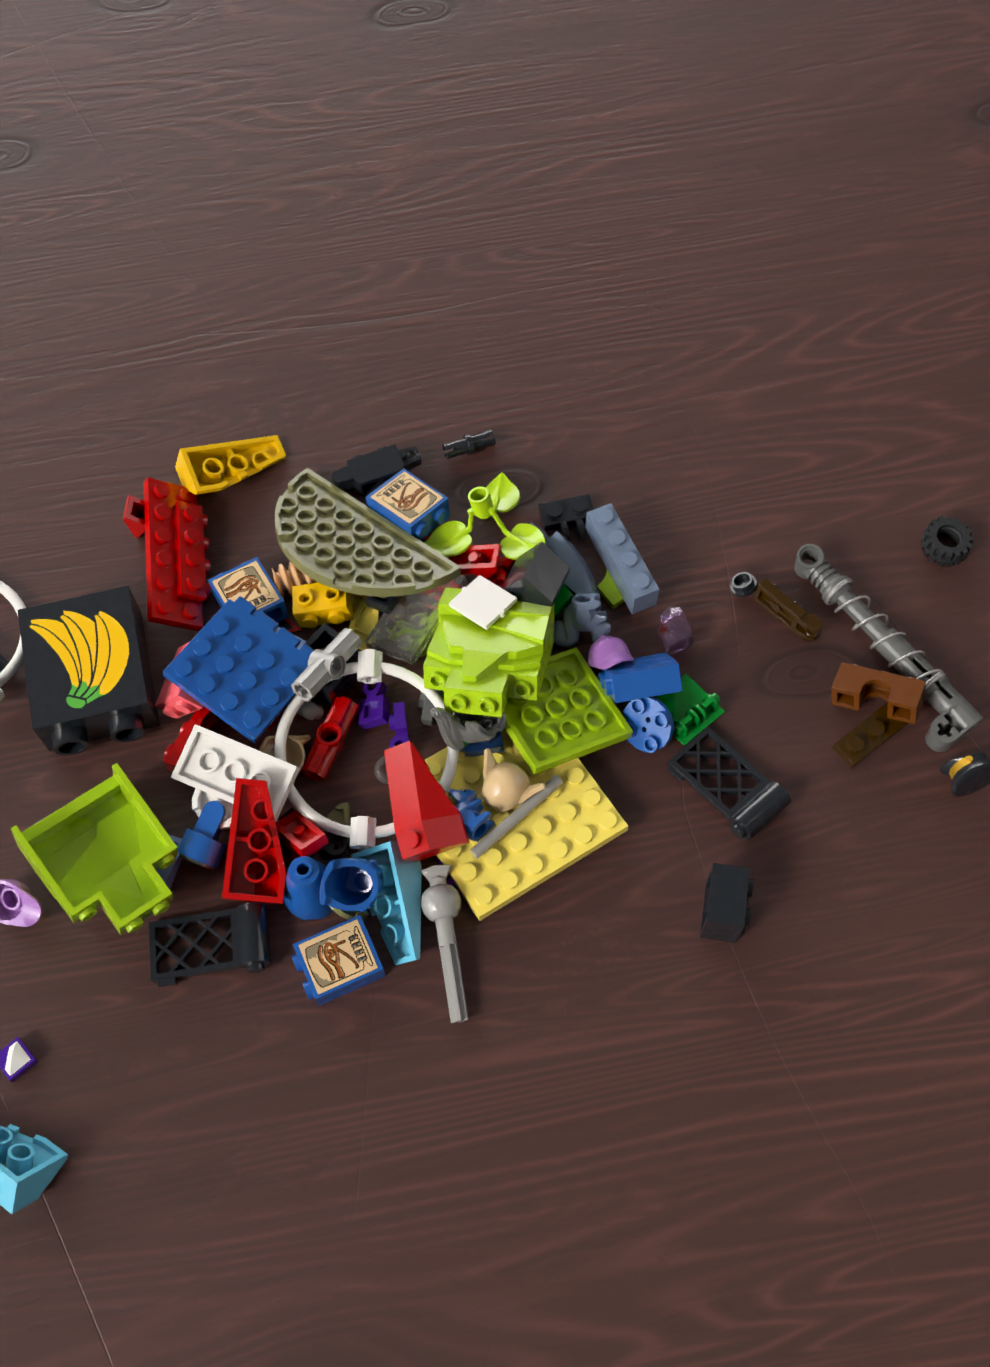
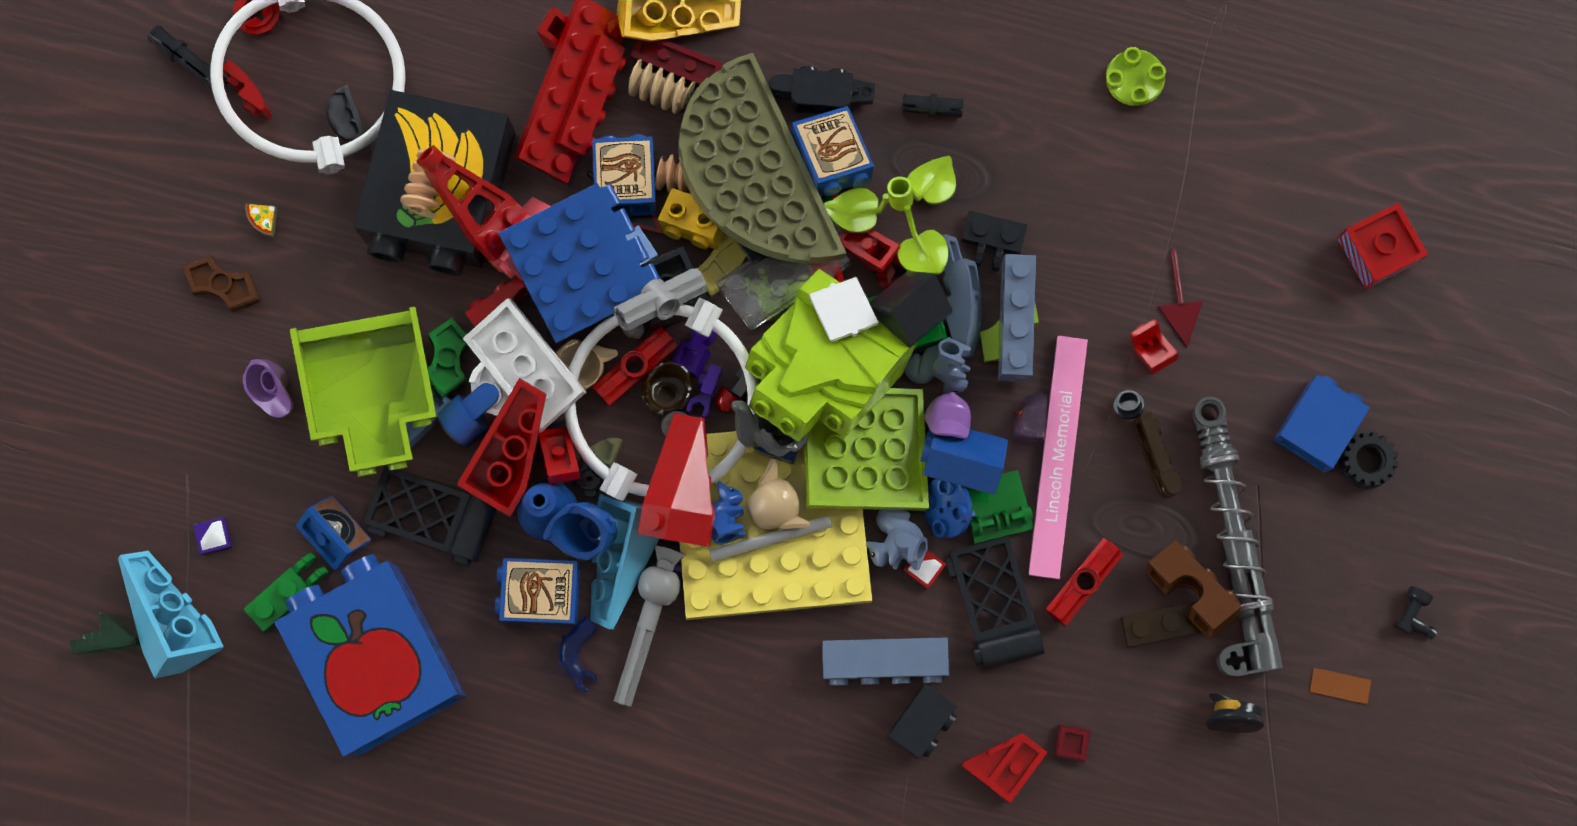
camera: 25 degrees right, 15 degrees up
(82, 661) = (421, 191): none -> light nougat piece
(105, 1078) = (271, 602): none -> green hinge
(125, 1001) = (332, 531): none -> panel
(151, 685) = (504, 212): none -> red plate
(160, 797) = (445, 369): none -> green tile
(210, 1090) = (368, 656): none -> blue brick
(245, 499) = (675, 59): none -> dark red plate
(245, 522) = (659, 88): none -> tan piece
(366, 740) = (667, 388): none -> dark brown hair
(390, 994) = (571, 647): none -> clear blue piece
(421, 730) = (724, 400): none -> red hinge
(611, 360) = (1135, 77): none -> lime dish
(625, 768) = (902, 542): none -> sand blue animal
(654, 783) = (928, 571): none -> tile
(663, 871) = (885, 659): none -> sand blue brick
(713, 653) = (1057, 458): none -> bright pink tile
(736, 536) = (1152, 347): none -> red bracket
(743, 507) = (1181, 315): none -> dark red piece
(786, 745) = (1071, 596): none -> red piece
(814, 907) = (1006, 765): none -> red wing
(854, 864) = (1072, 743): none -> dark red tile
(862, 389) = (1382, 246): none -> red container
(896, 531) = (1322, 423): none -> blue brick

